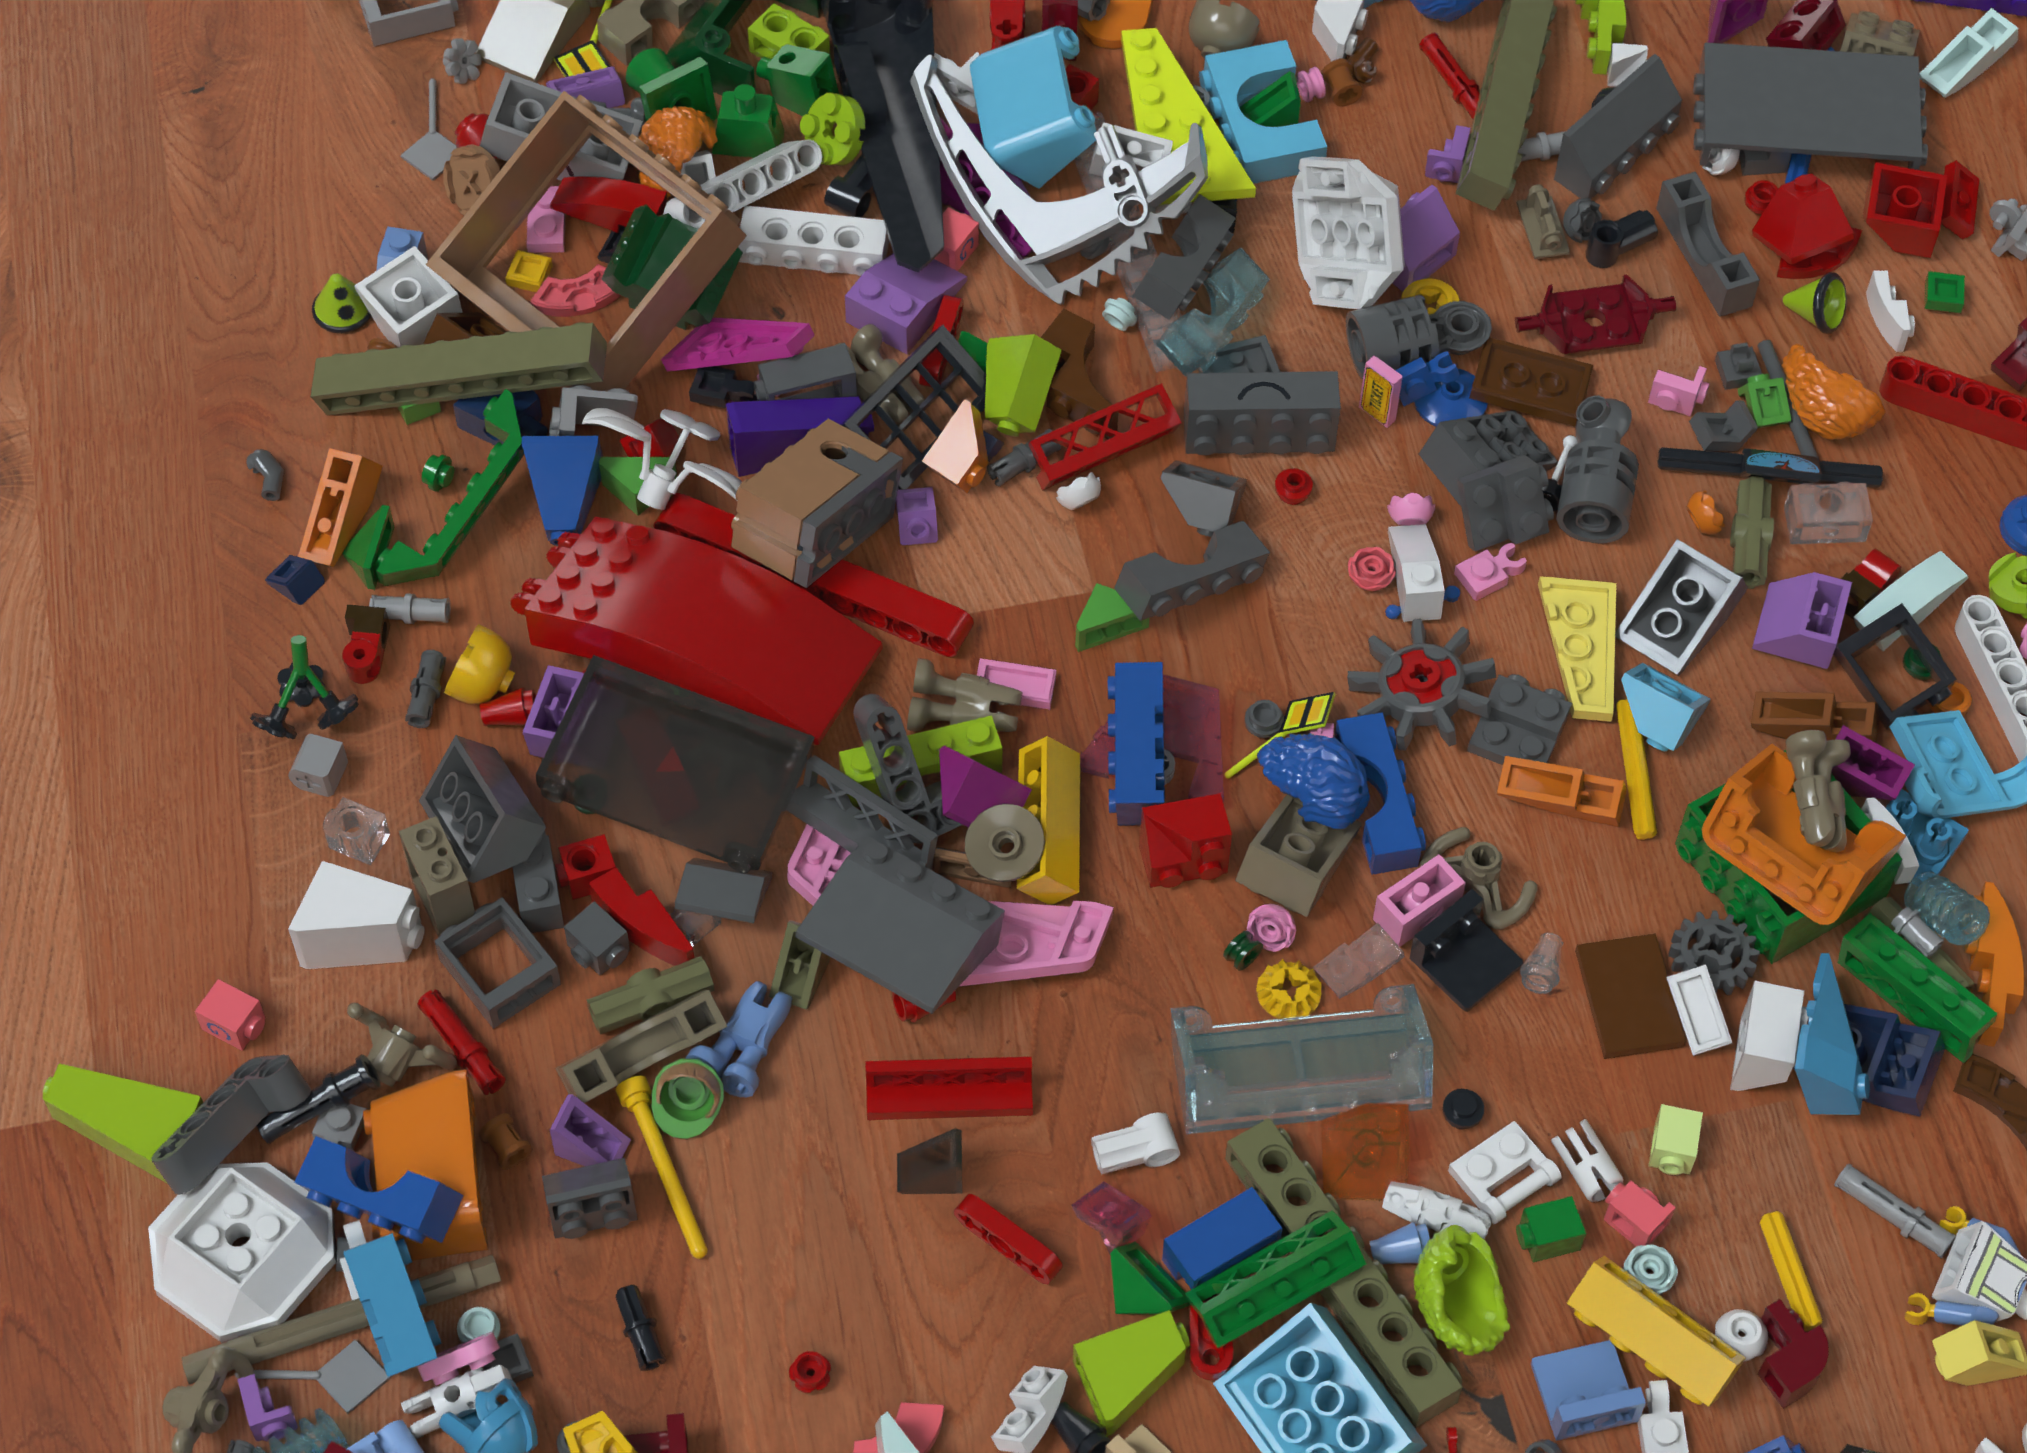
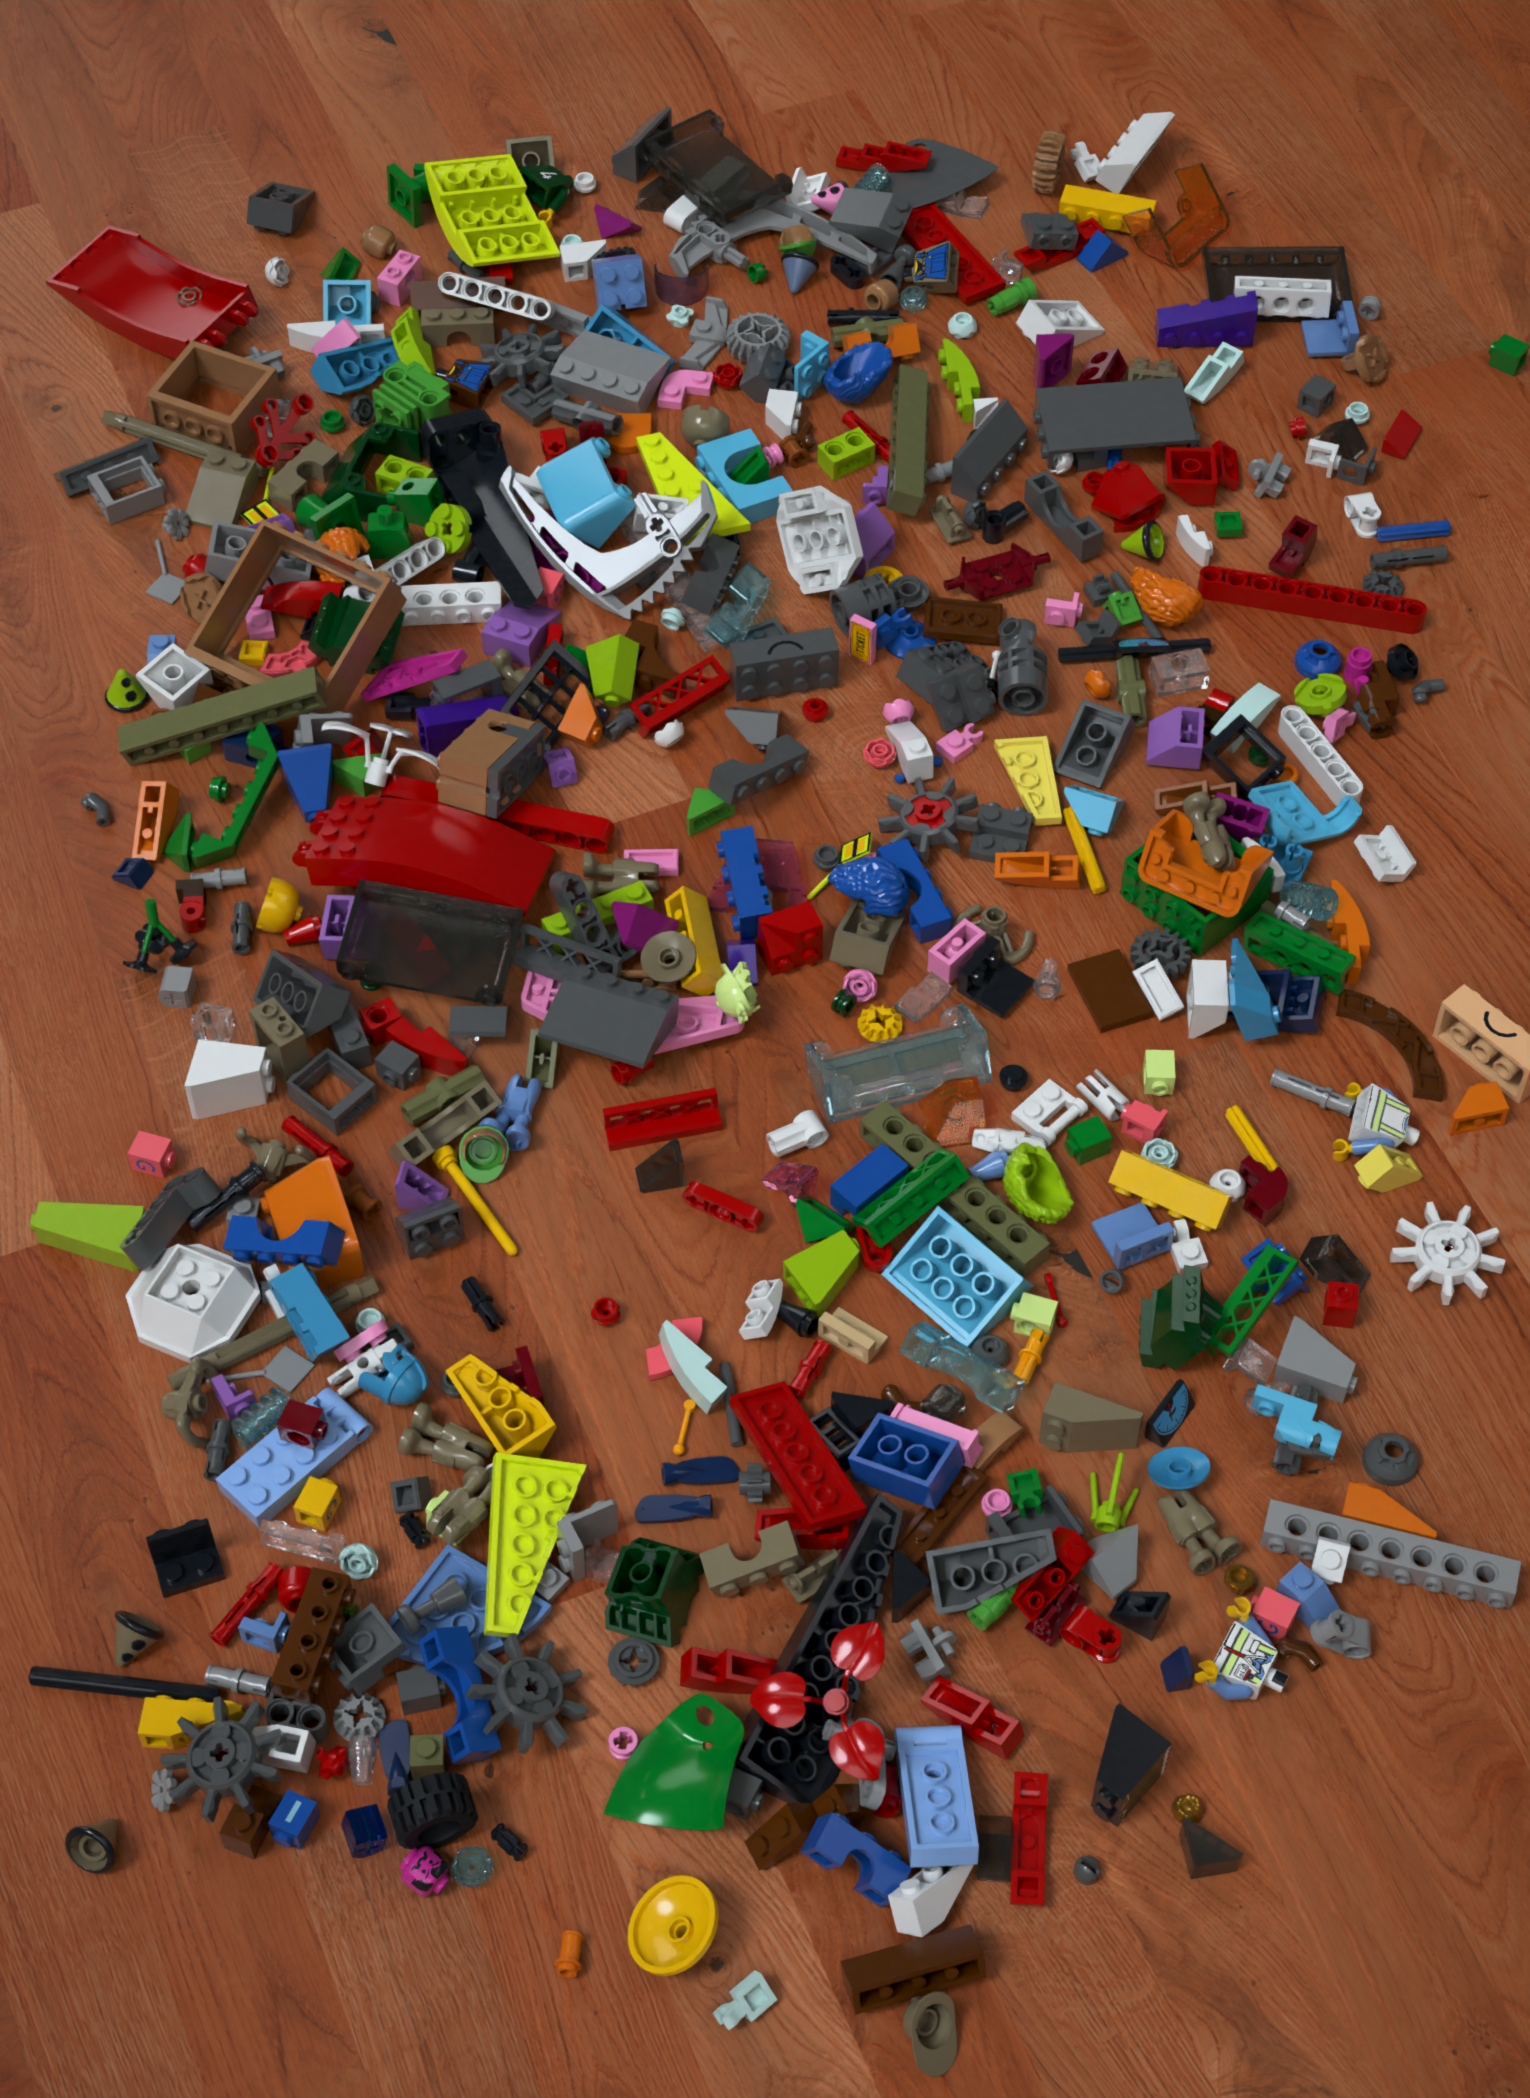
camera: 10 degrees left, 5 degrees down
(1090, 916) = (735, 992): none -> yellowish green hair
(1111, 861) = (743, 951): none -> dark purple slope
(1415, 97) = (846, 453): none -> lime brick

